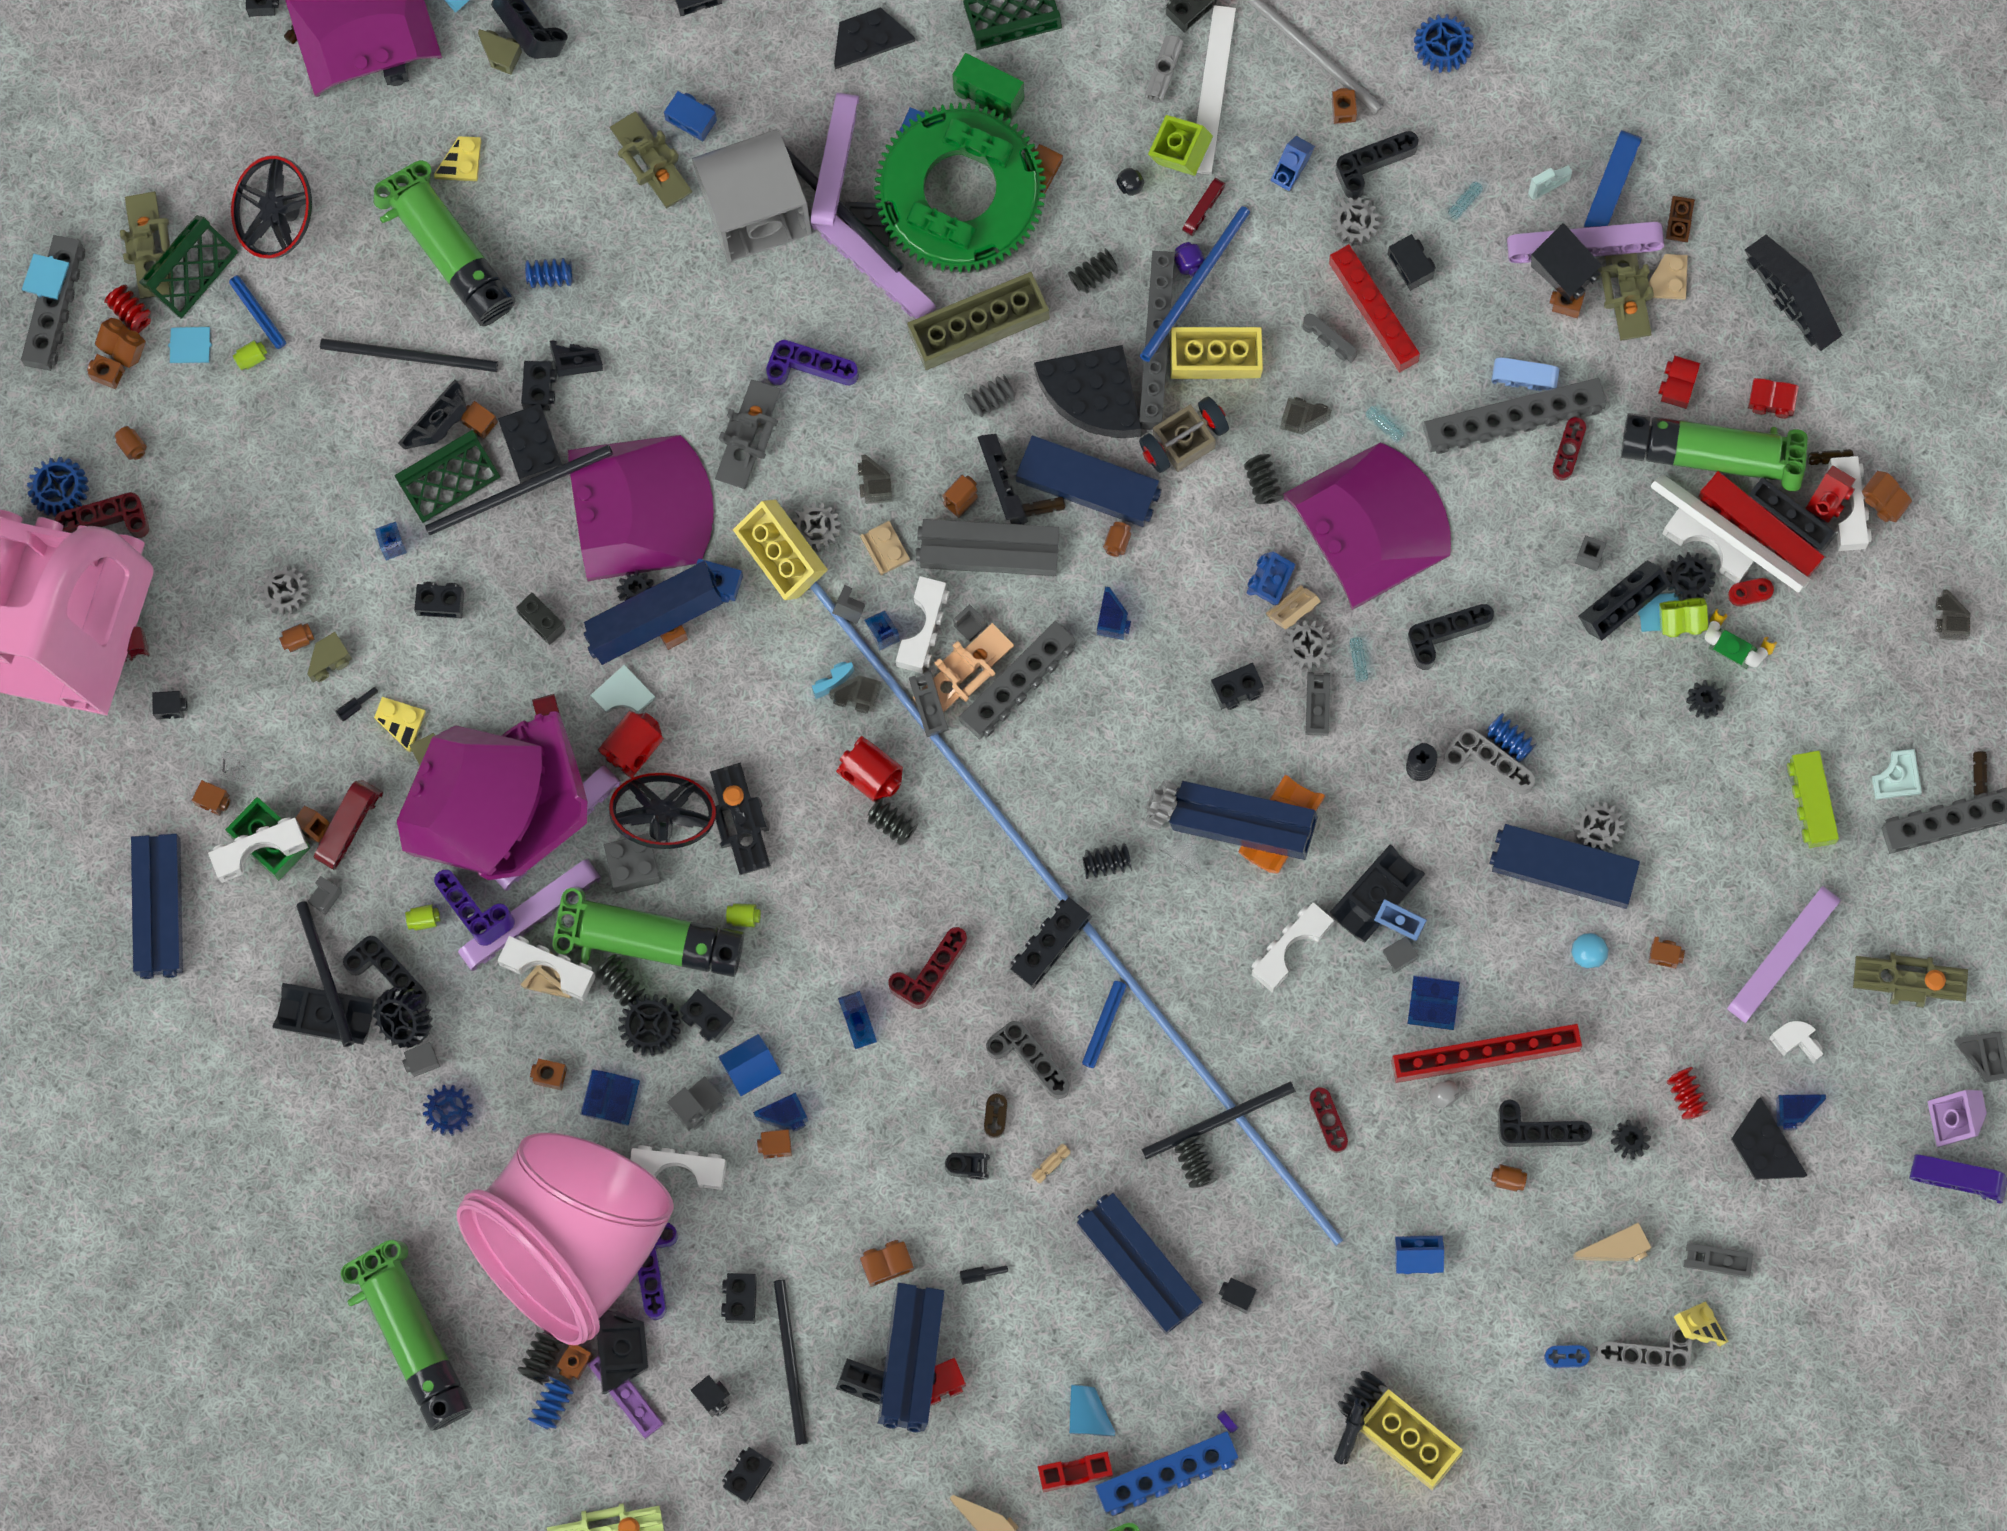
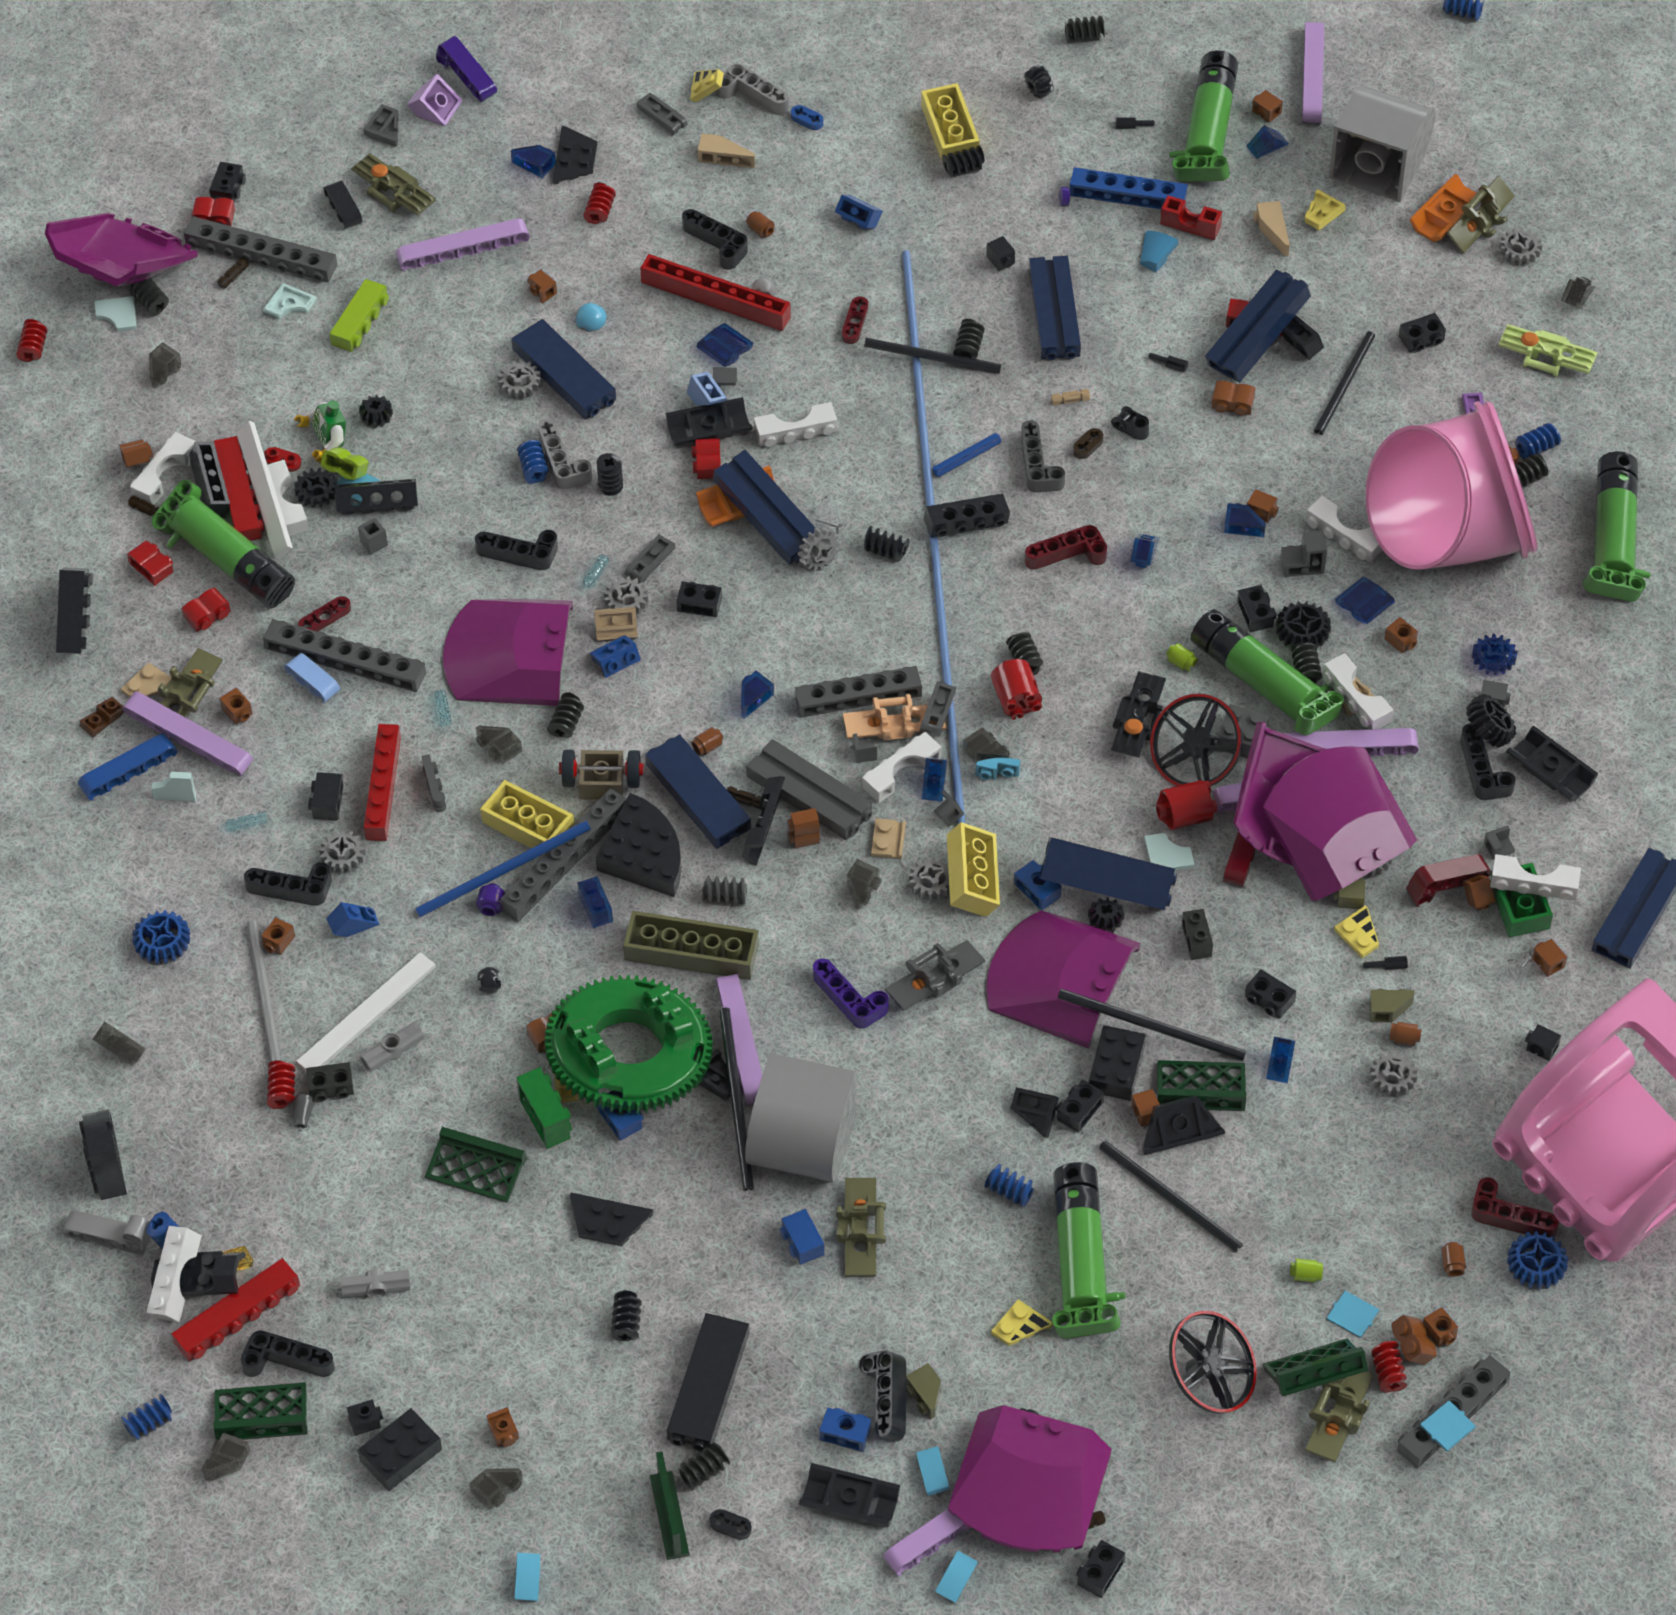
camera: 150 degrees left, 20 degrees down
(257, 312) = (1277, 1304): blue axle -> none
(325, 974) = (1533, 784): black piece -> none
(422, 917) = (1431, 786): lime brick -> none
(478, 921) = (1390, 766): dark purple beam -> none
(712, 1396) = (1417, 381): black brick -> none
(745, 1298) = (1354, 431): black brick -> none
(749, 1065) = (1245, 568): blue slope -> none
(834, 159) = (709, 1127): lavender beam -> none
(1093, 271) = (572, 930): pearl dark grey piece -> none
(1094, 311) = (595, 902): none -> clear blue brick
(1180, 145) = (429, 974): lime brick -> none
(1206, 202) = (457, 926): dark red beam -> none
(1348, 852) = (707, 457): none -> red brick
(1355, 1423) = (974, 137): black pin -> none
(1566, 263) = (220, 712): black slope -> none
(1638, 1145) = (660, 201): black gear -> none
(1796, 1034) = (499, 197): white brick -> none
(1831, 493) = (170, 471): red brick -> none
(1943, 924) = (343, 204): none -> black beam

